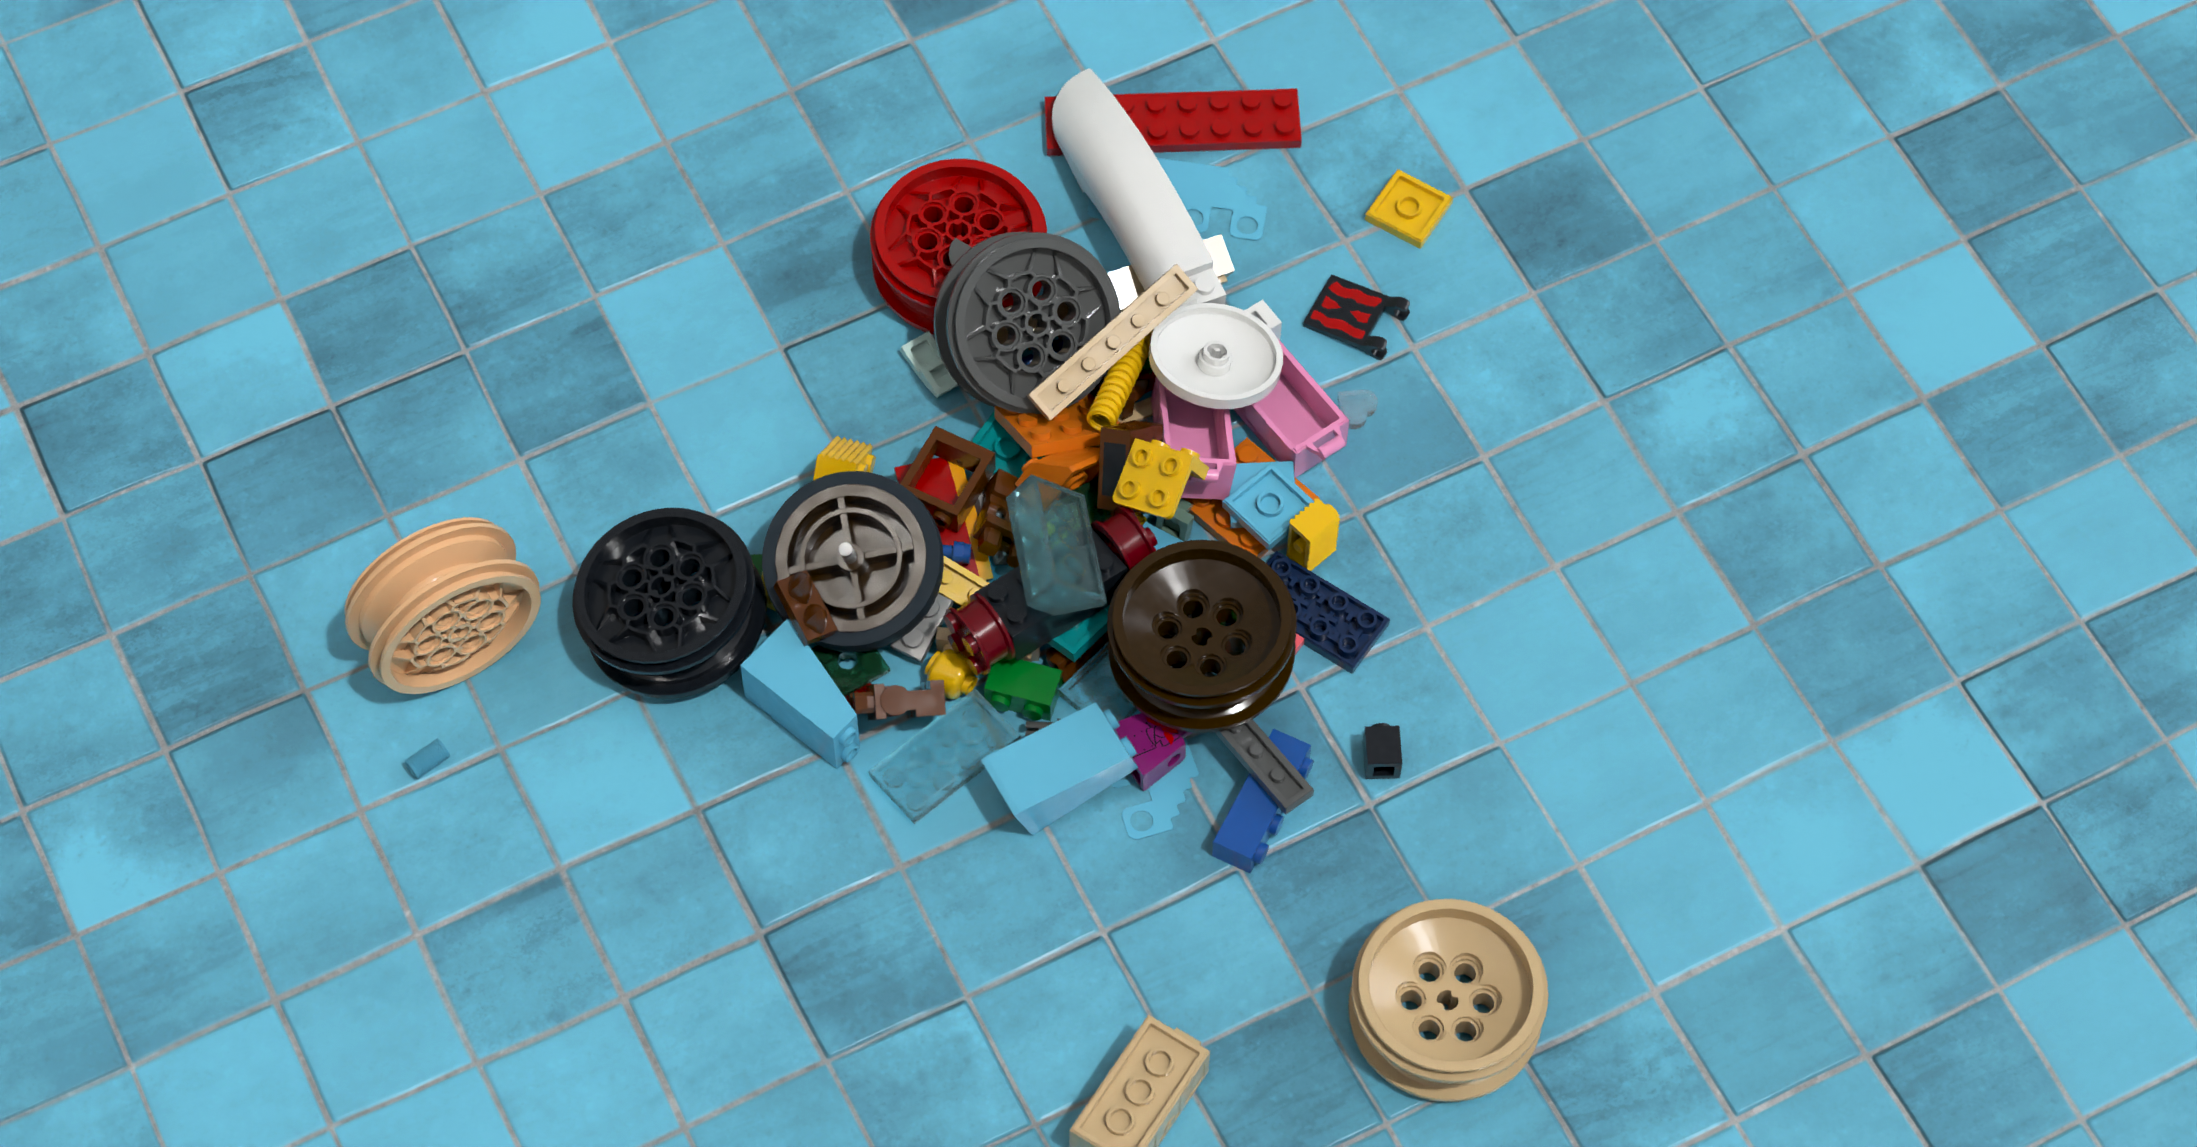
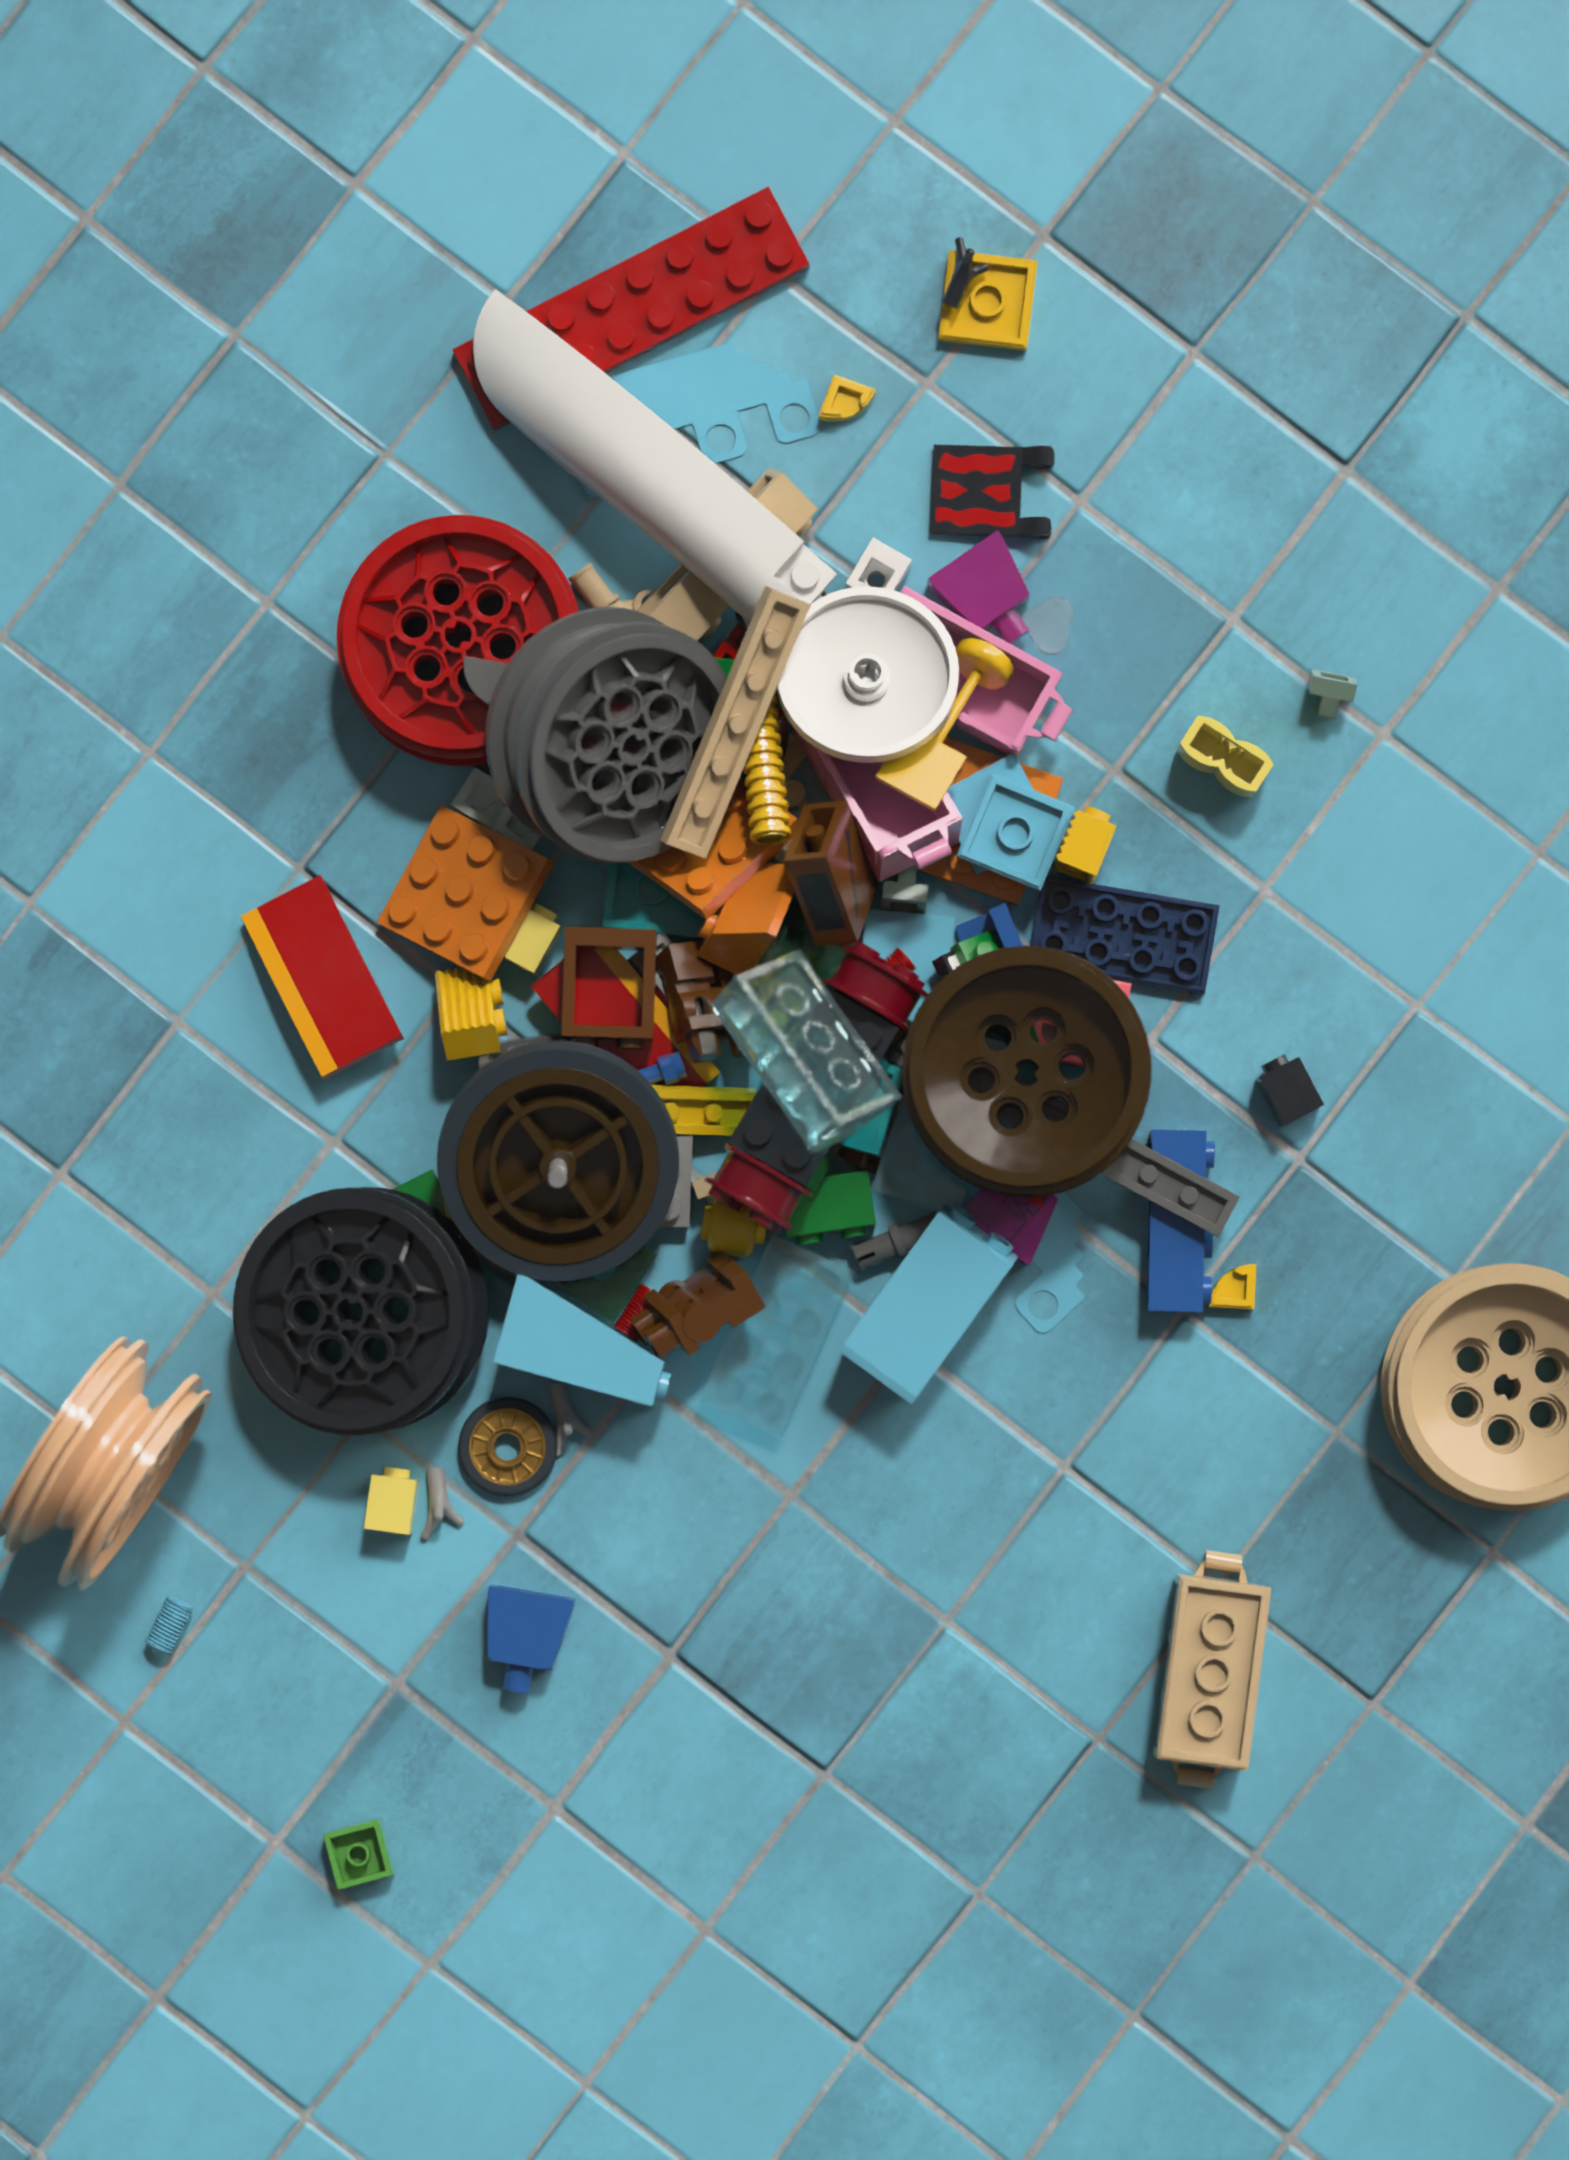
camera: 20 degrees left, 25 degrees up
(470, 960) = (359, 1853): none -> bright green piece
(622, 745) = (392, 1501): none -> light yellow brick
(654, 763) = (438, 1502): none -> light grey bar
(668, 866) = (525, 1632): none -> blue torso
(726, 767) = (478, 1442): none -> wheel
(759, 409) = (322, 977): none -> red slope
(771, 746) = (565, 1415): none -> light grey bar
(805, 608) = (535, 1256): reddish brown tile -> none
(881, 397) = (465, 892): none -> orange plate
(905, 441) = (534, 940): none -> light yellow brick
(1156, 477) = (883, 897): yellow bracket -> none
(1229, 429) = (932, 767): none -> yellow piece
(1282, 866) = (1235, 1288): none -> yellow tile
(1285, 226) = (845, 400): none -> yellow tile
(1325, 359) = (984, 588): none -> magenta torso
(1398, 182) = (962, 275): none -> black bar
(1438, 525) = (1234, 762): none -> light yellow brick
(1530, 519) = (1331, 689): none -> sand green tile

